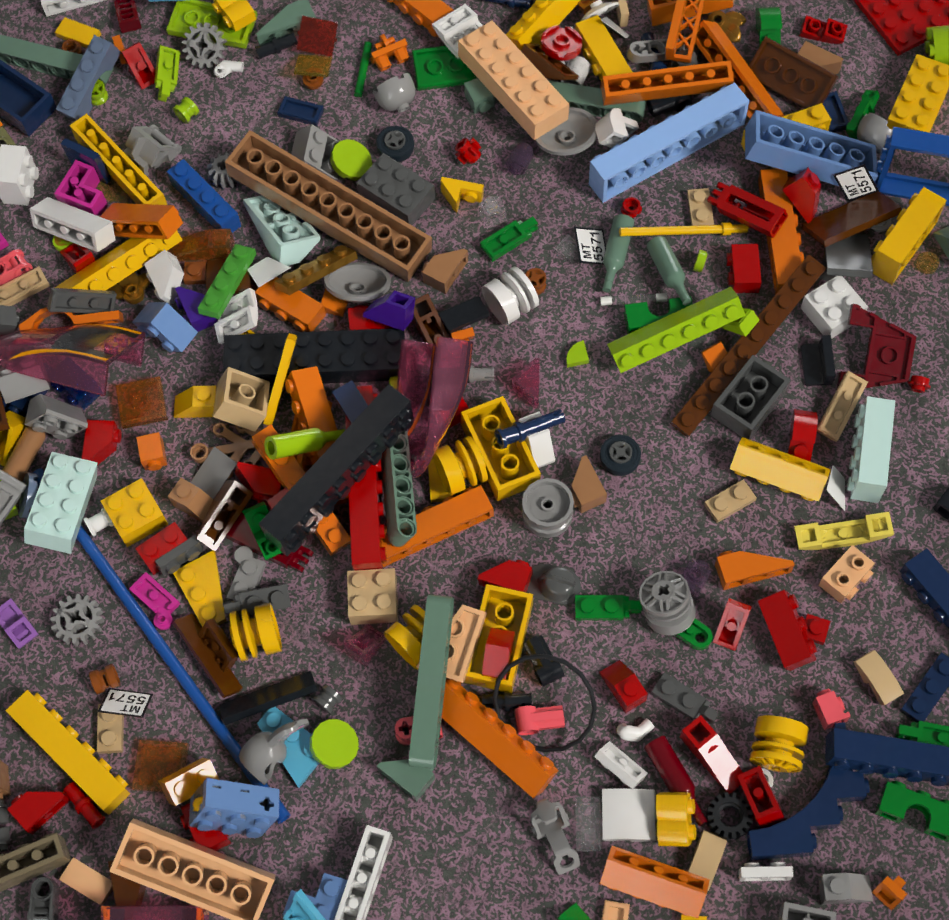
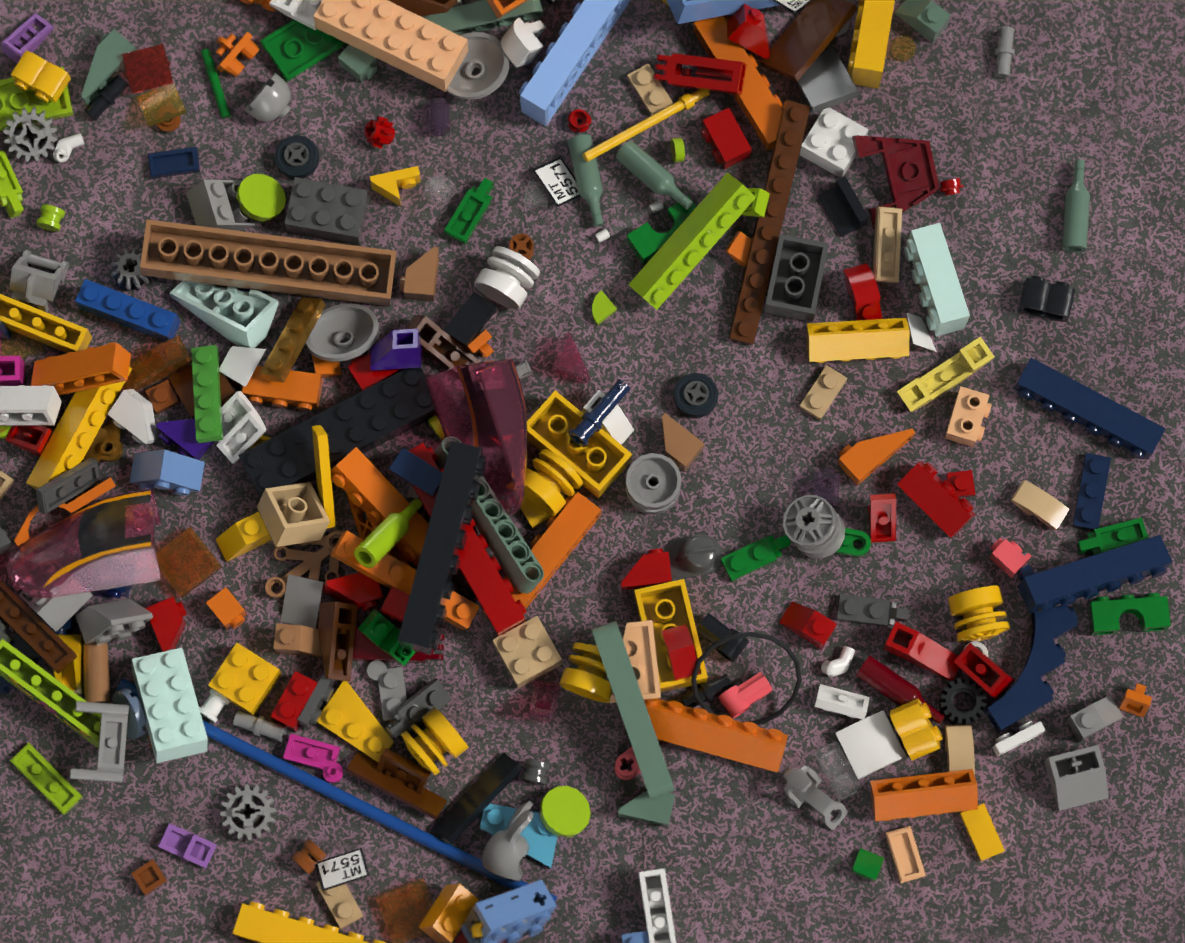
camera: 30 degrees left, 10 degrees up
(126, 555) = (260, 725): none -> light grey pin

